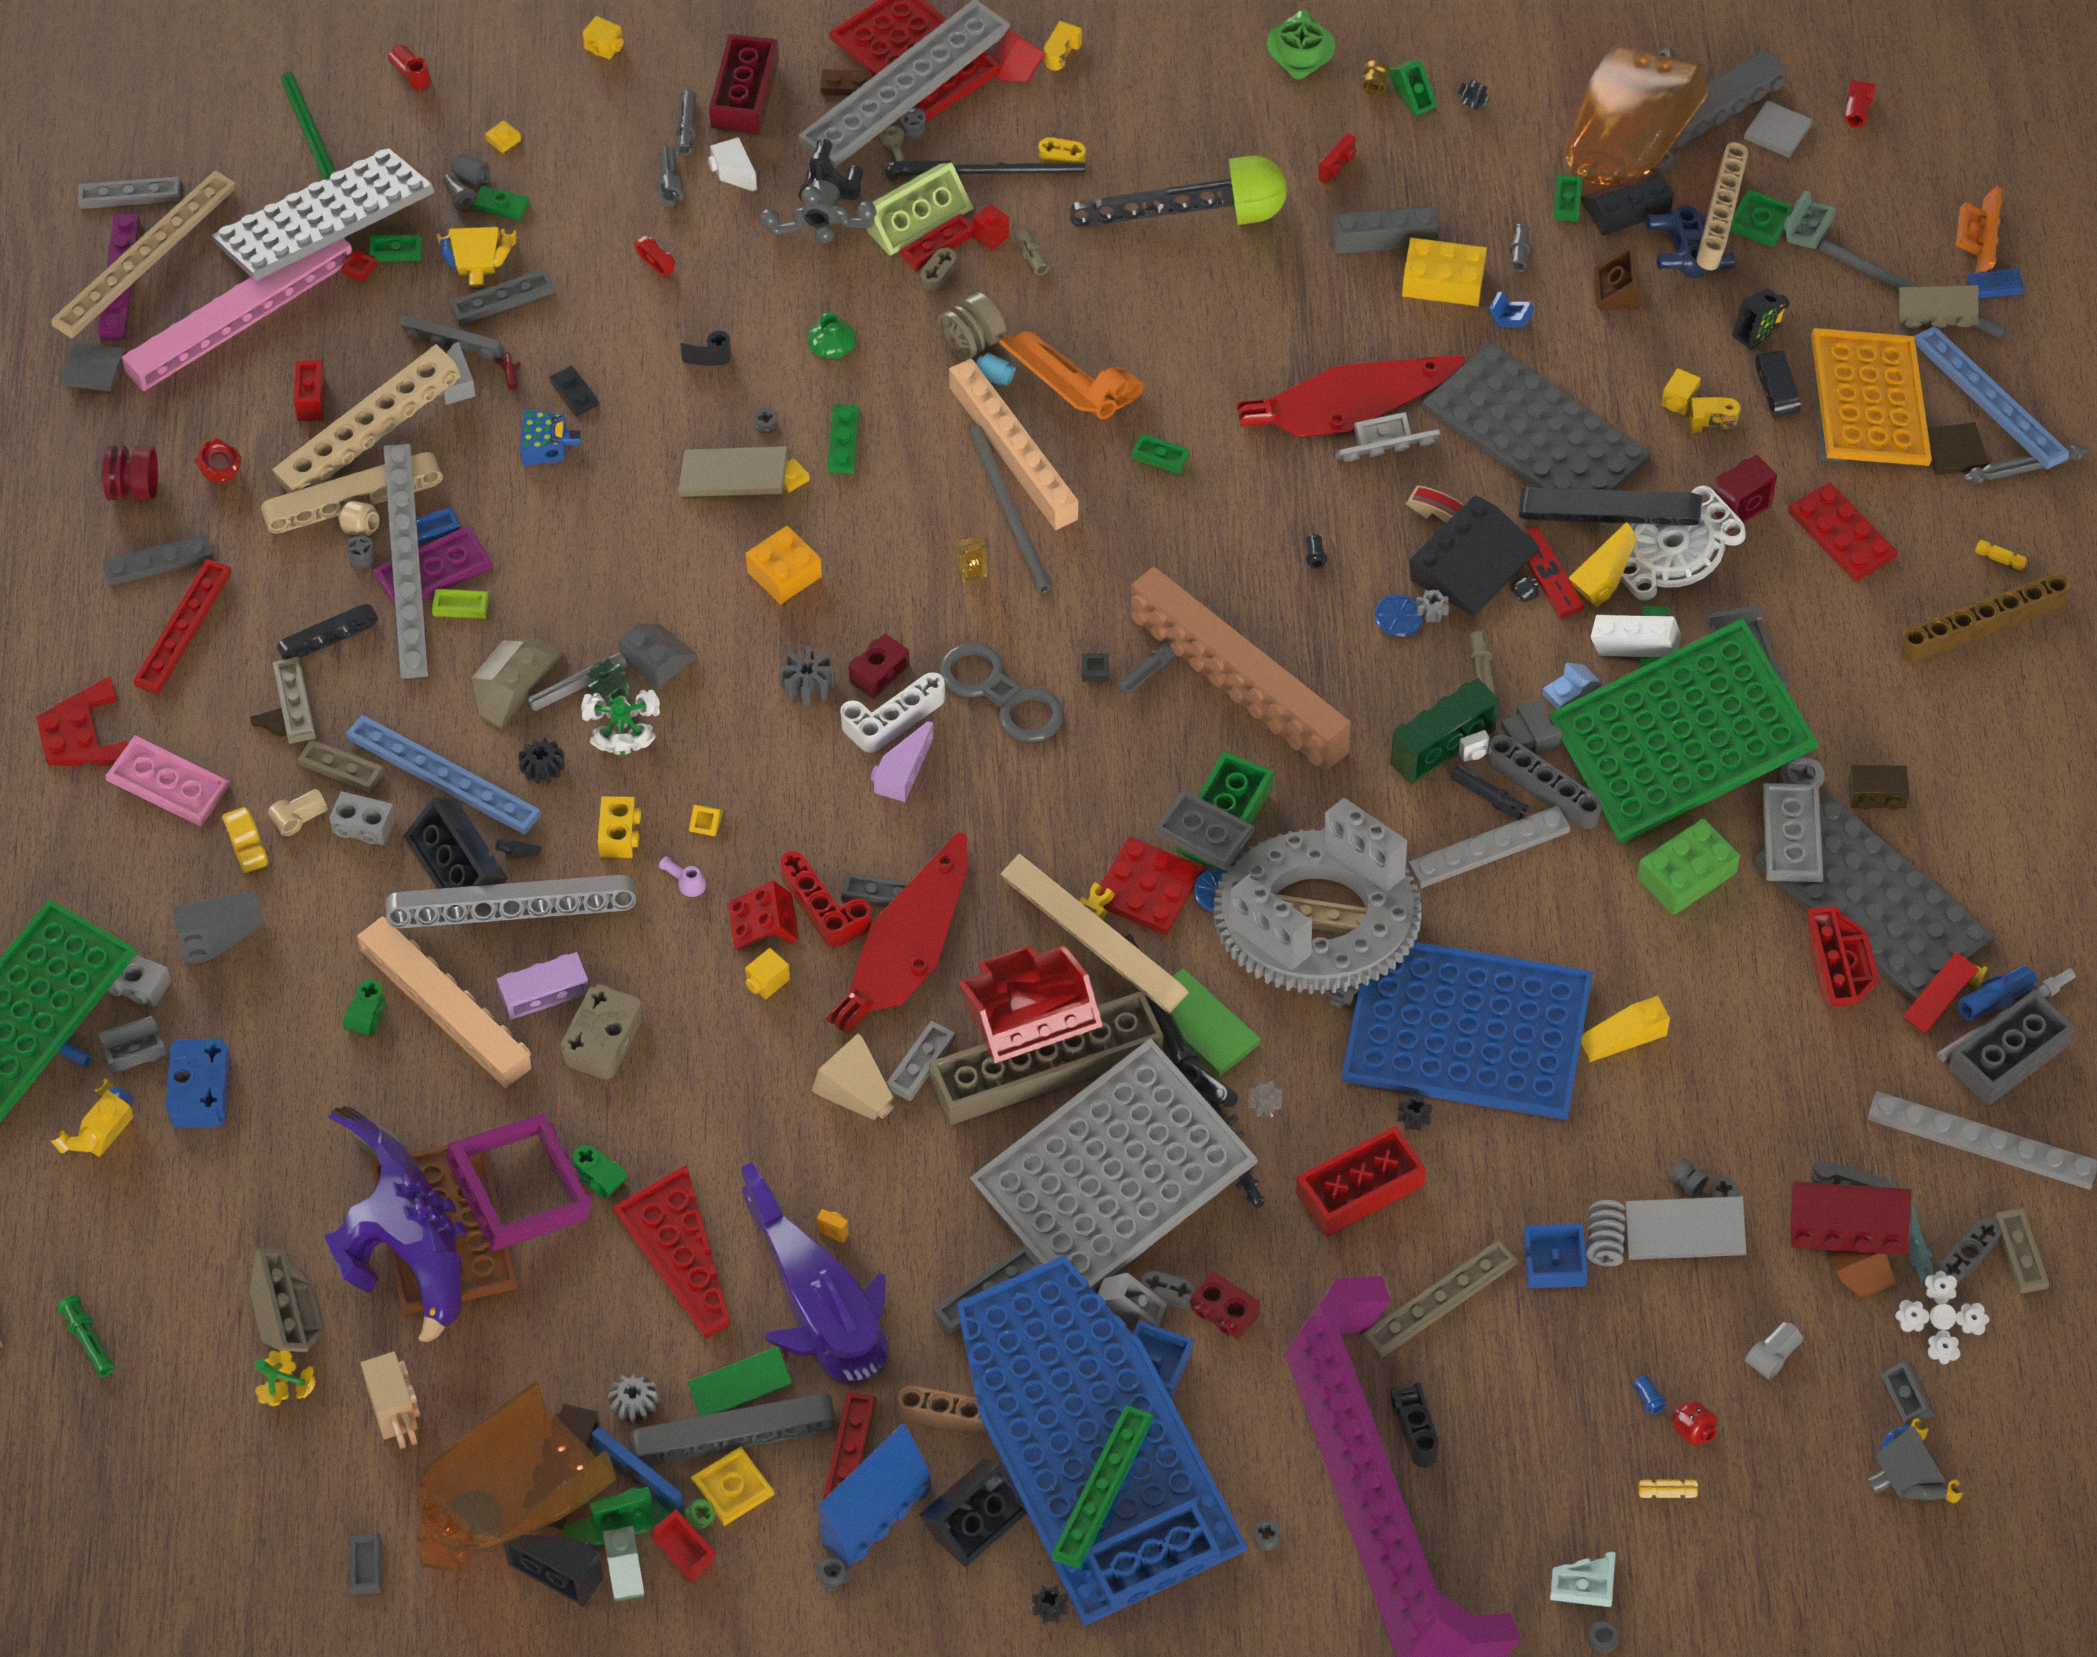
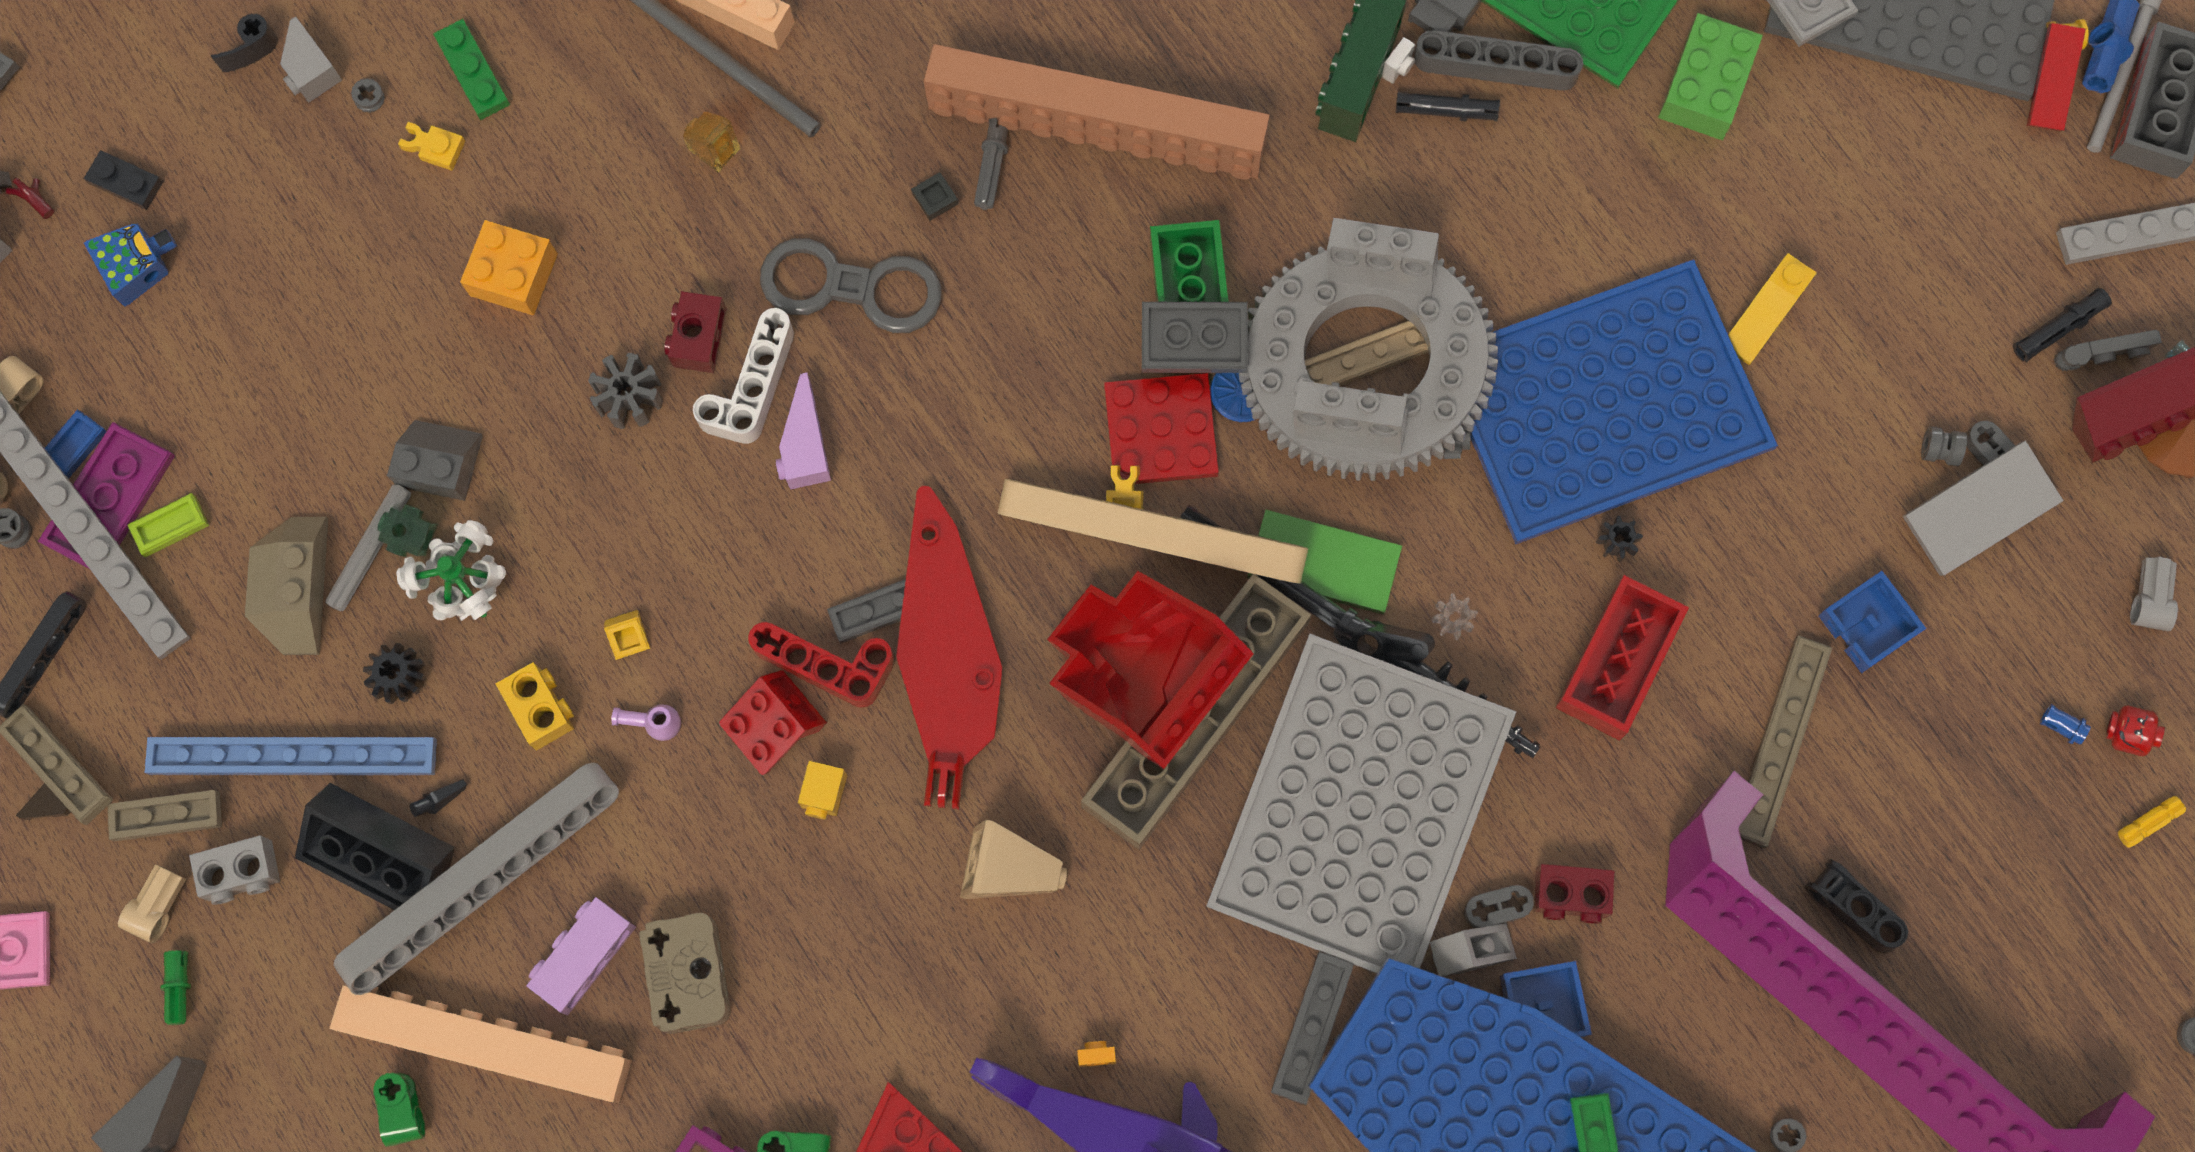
camera: 30 degrees left, 20 degrees up
(245, 839) = (113, 979): yellow animal -> none
(278, 866) = (175, 986): none -> green axle
(733, 471) = (375, 182): dark tan tile -> none
(738, 380) = (306, 64): none -> light grey slope
(915, 1066) = (1058, 793): light grey plate -> none
(1489, 847) = (1489, 167): light grey plate -> none
(1585, 1581) = (2143, 984): light aqua wing -> none
(1605, 1233) = (1905, 563): light grey piece -> none
(1840, 957) = (1937, 99): red wedge -> none
(1868, 1149) = (2074, 316): none -> black pin

